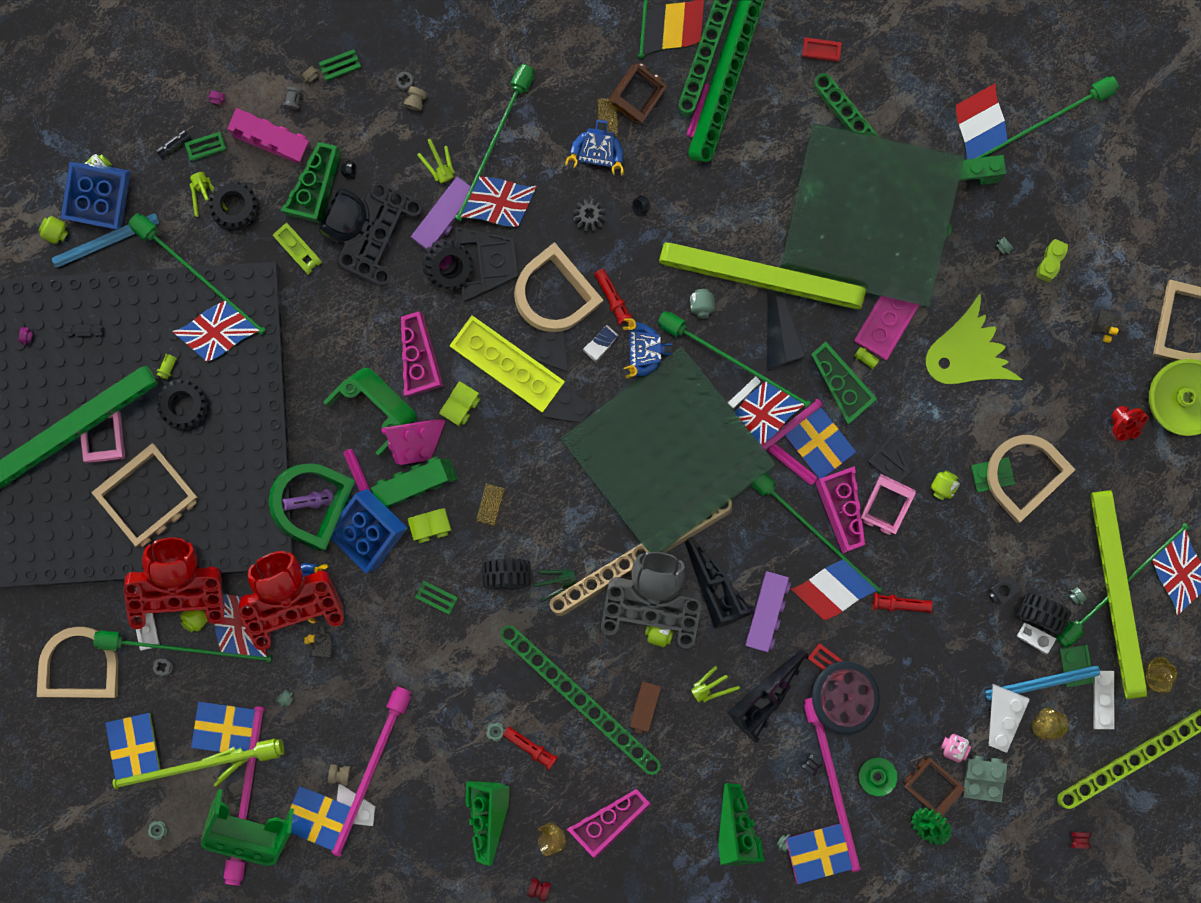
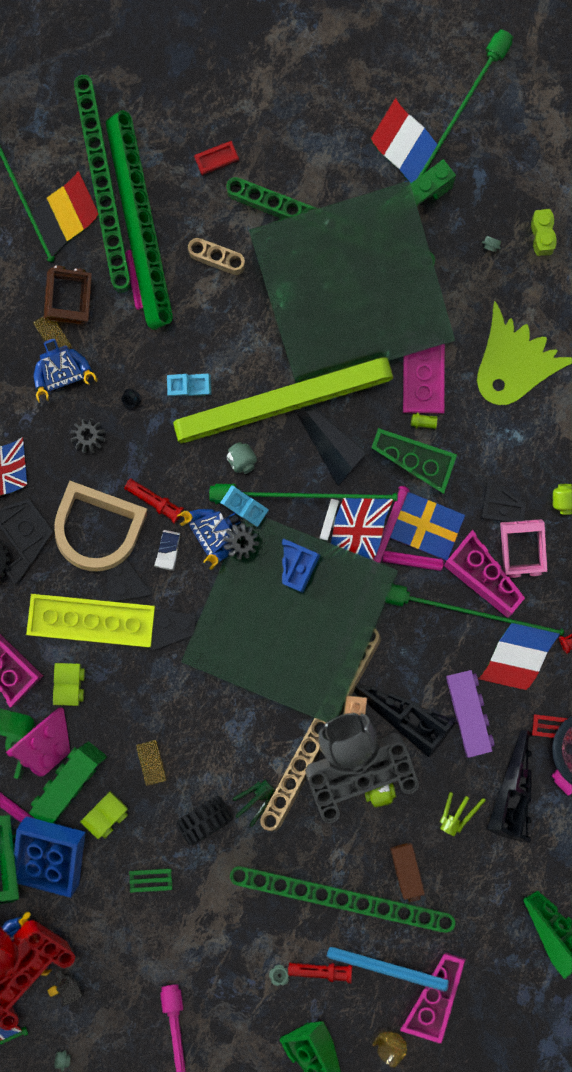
camera: 25 degrees left, 0 degrees up
(585, 775) = (388, 969): none -> dark azure axle
(656, 371) = (244, 533): none -> dark grey gear
(679, 551) = (355, 705): none -> light nougat bracket
(682, 342) = (244, 506): none -> medium azure slope
(693, 220) = (189, 385): none -> medium azure slope
(697, 414) = (297, 565): none -> blue wing
(774, 120) = (211, 248): none -> tan beam

